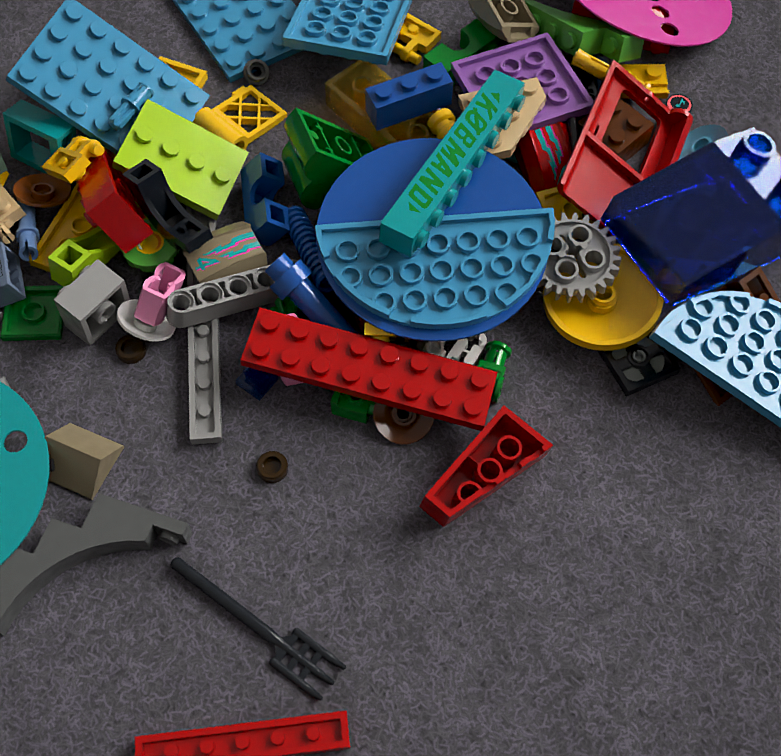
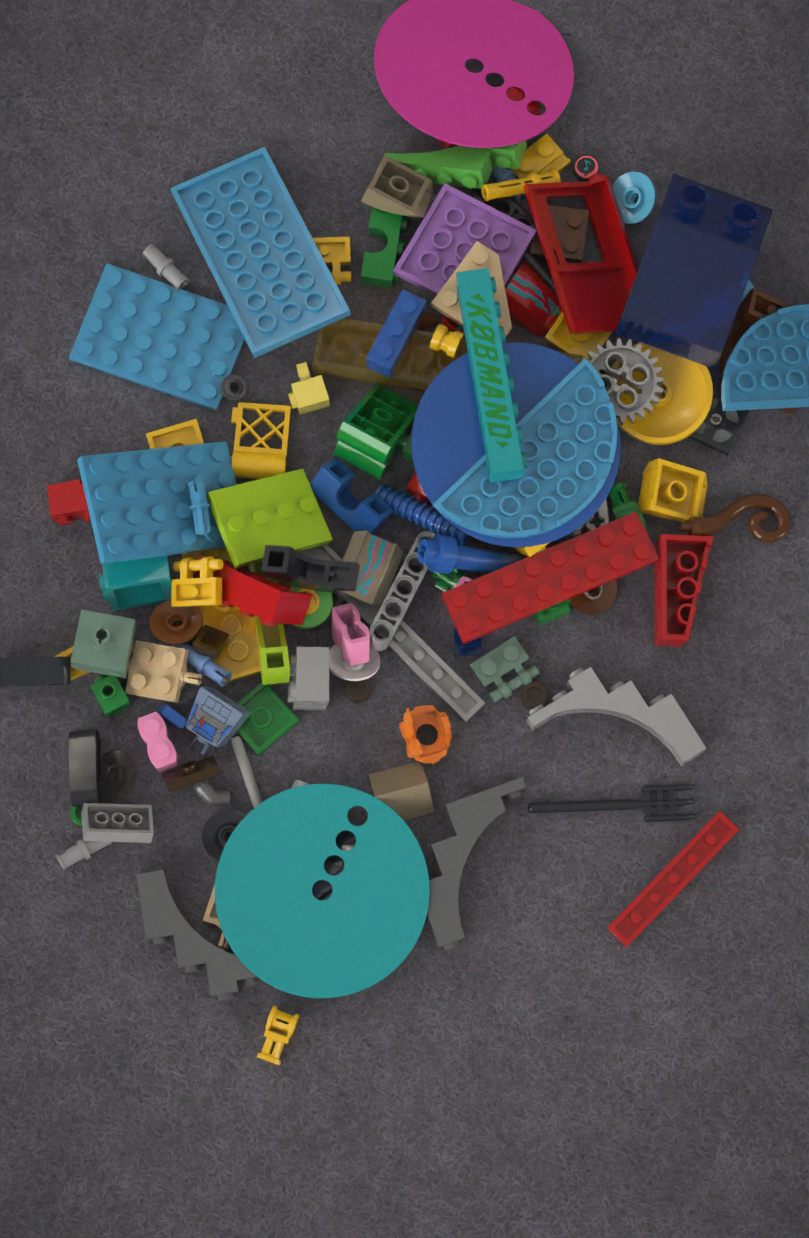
camera: 40 degrees left, 15 degrees up
(47, 219) = (211, 642): none -> dark brown plate
(160, 419) = (426, 716): none -> orange piece
(266, 416) = (500, 662): none -> sand green plate
(313, 102) = (309, 392): none -> light yellow brick
(367, 573) = (661, 719): none -> light grey arch
(550, 388) = (672, 491): none -> yellow slope
(583, 441) = (713, 524): none -> reddish brown plant

